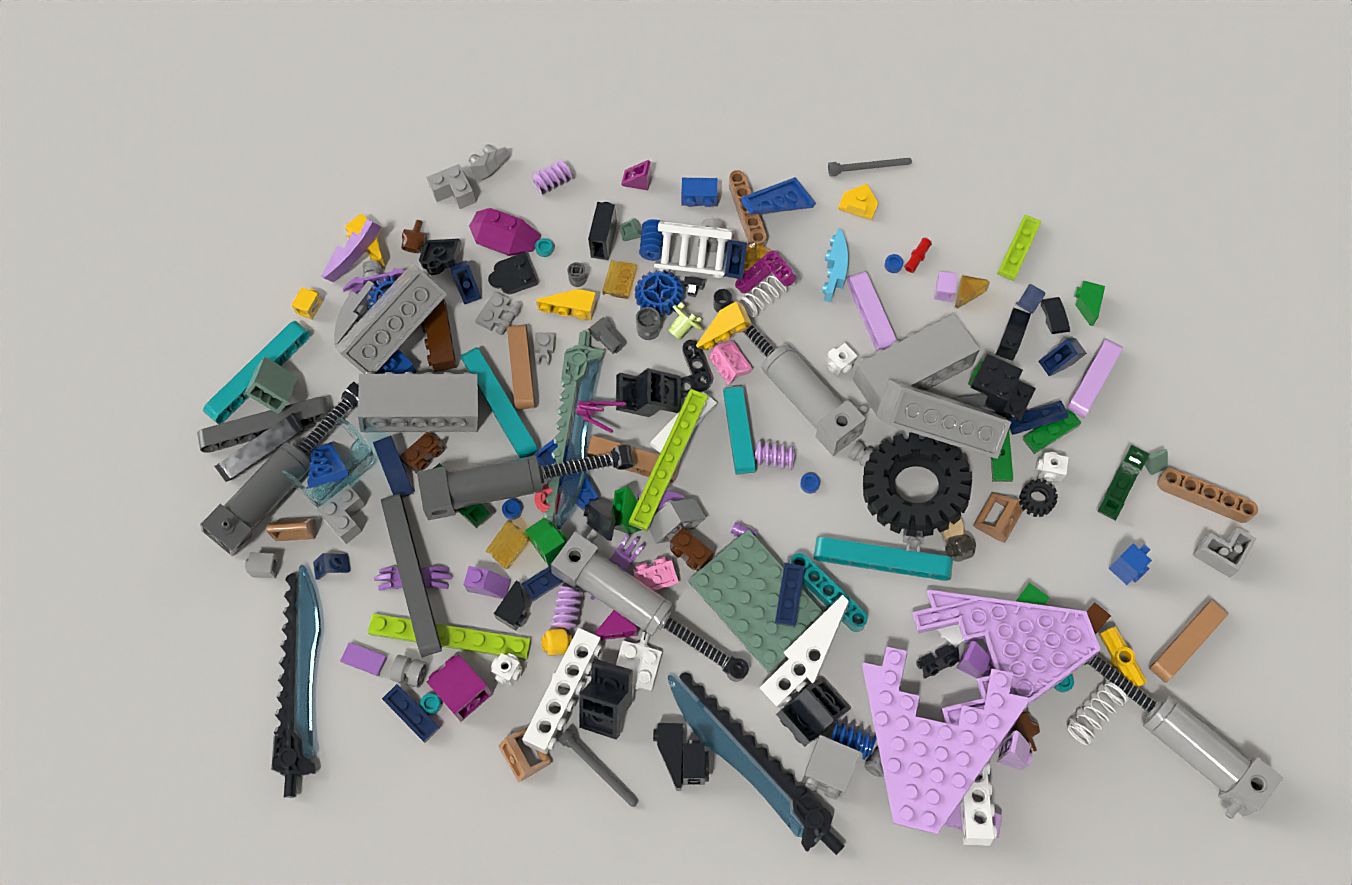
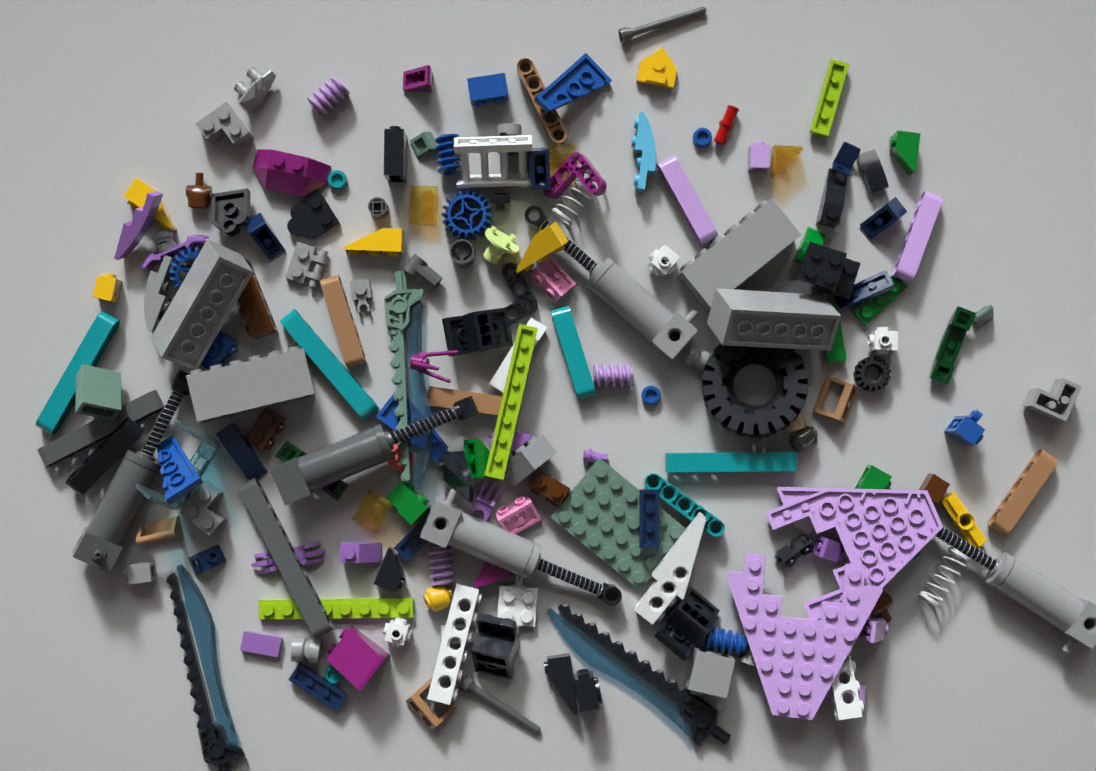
camera: 15 degrees left, 20 degrees up
(512, 509) = (368, 475): blue tile -> none
(1216, 494) = (1042, 344): medium nougat beam -> none

